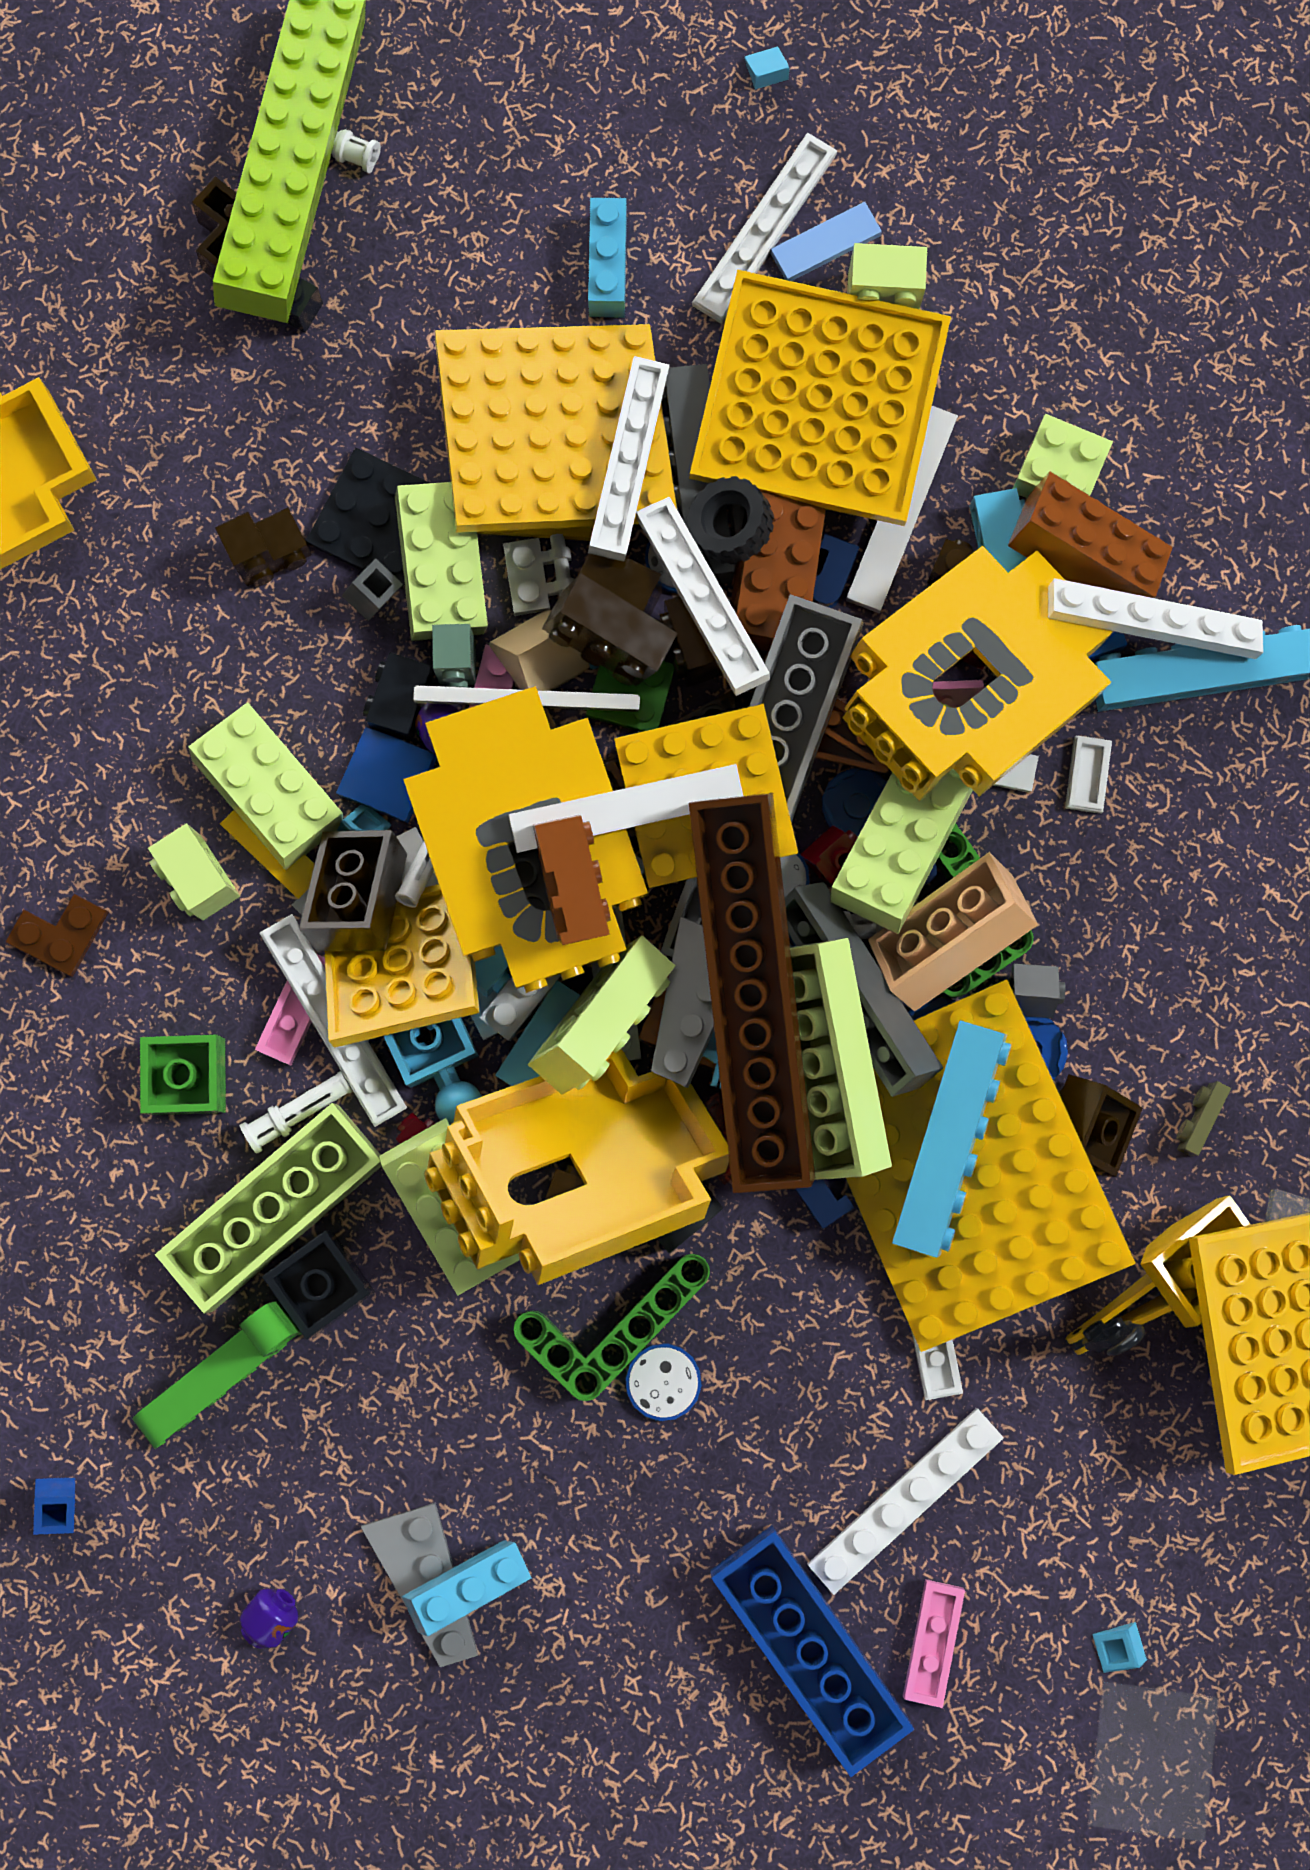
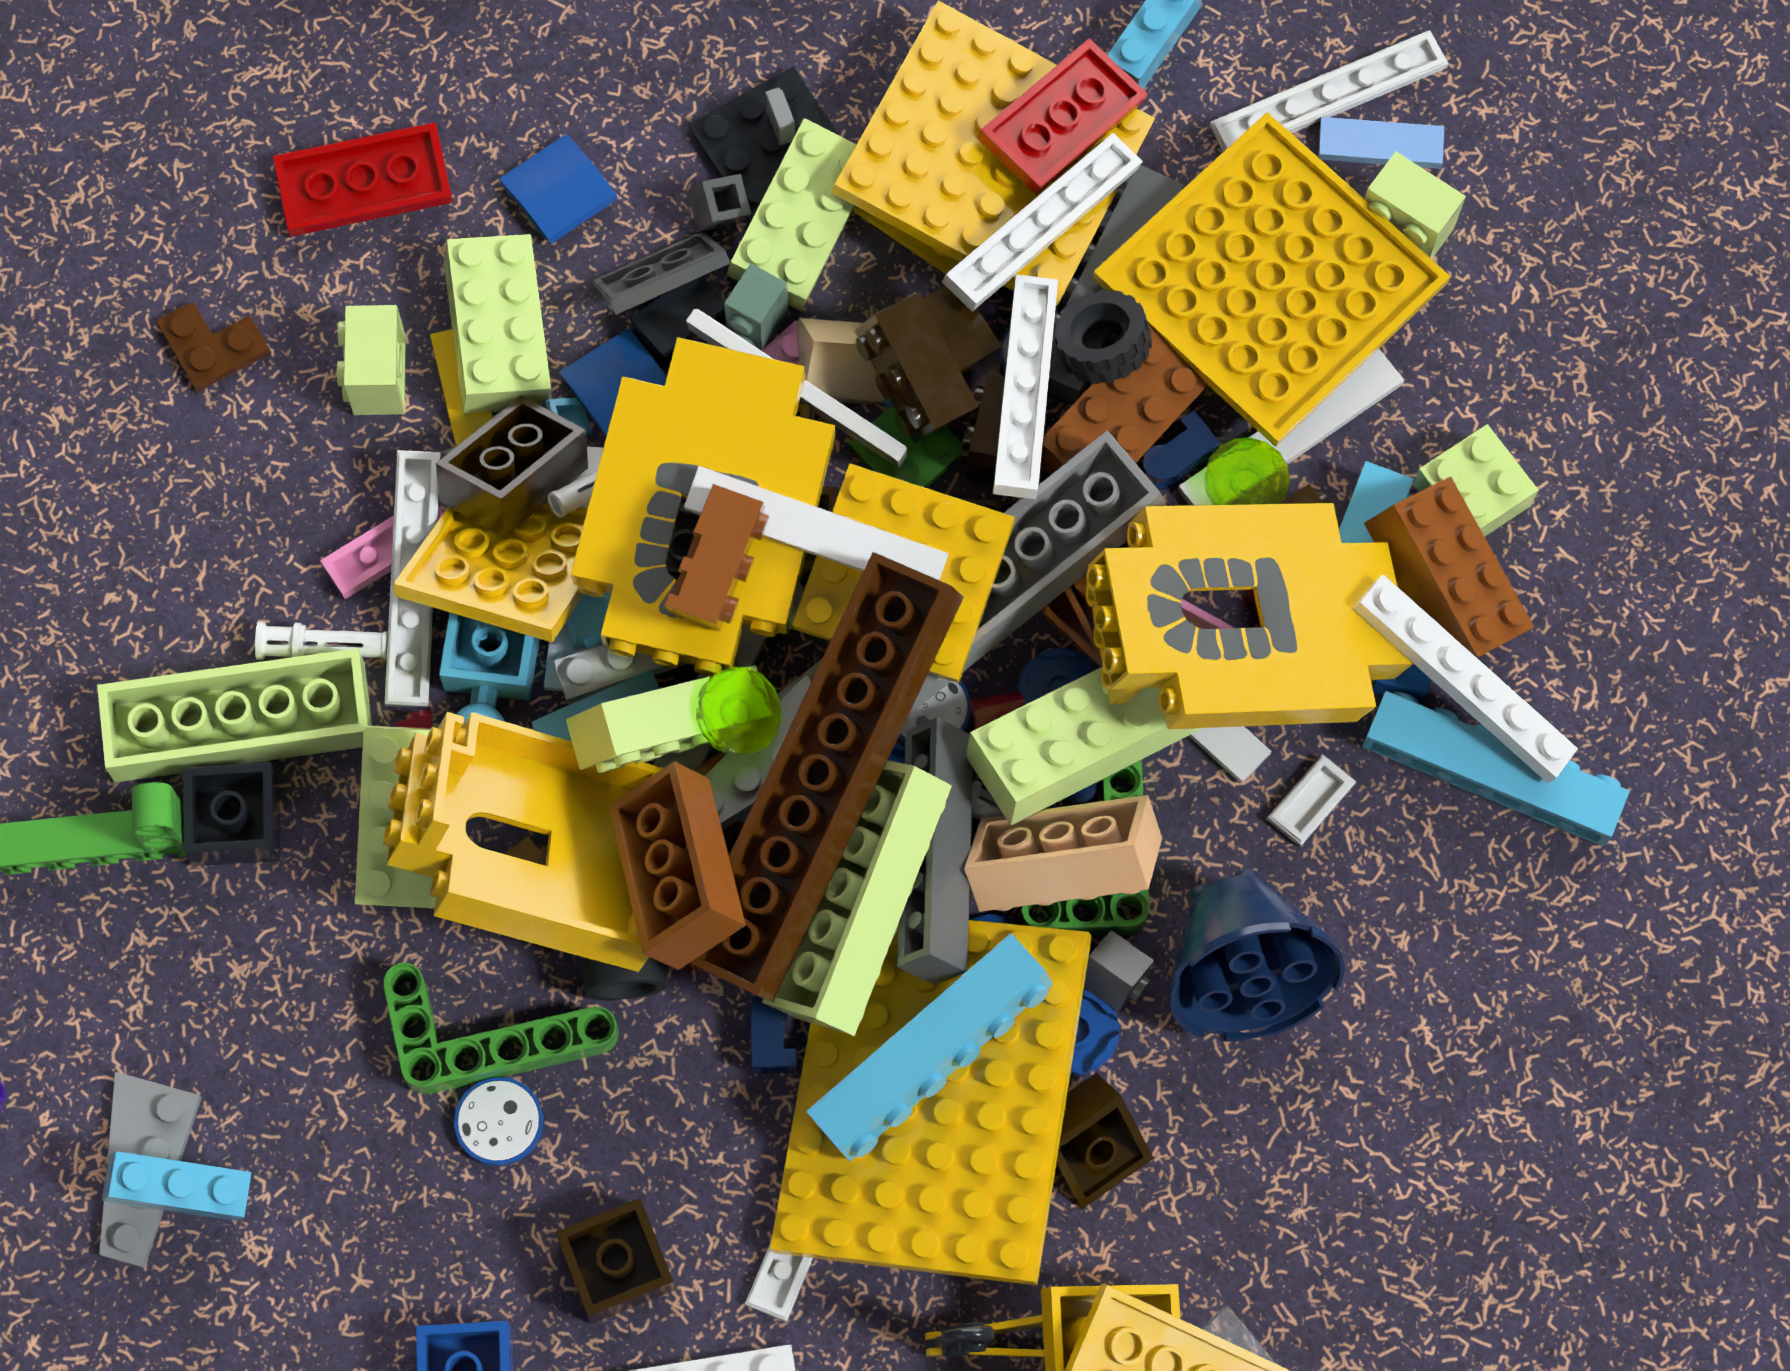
camera: 30 degrees right, 10 degrees down
(88, 735) = (362, 179): none -> red plate
(182, 1075) = (237, 541): bright green brick -> none
(241, 651) = (558, 189): none -> blue slope
(263, 546) = (642, 104): dark brown brick -> none
(363, 671) = (660, 272): none -> dark grey tile
(374, 493) = (780, 116): none -> light grey tile
(527, 573) = (881, 277): white plate -> none
(588, 366) = (1062, 116): none -> plate
(654, 980) = (738, 711): none -> clear neon green tile
(689, 1129) = (676, 866): none -> dark orange brick
(818, 1433) = (615, 1260): none -> dark brown brick
(894, 562) = (1246, 474): none -> clear neon green tile
(1127, 922) = (1249, 961): none -> dark blue cone
(1209, 1104) = (1220, 1191): olive plate -> none

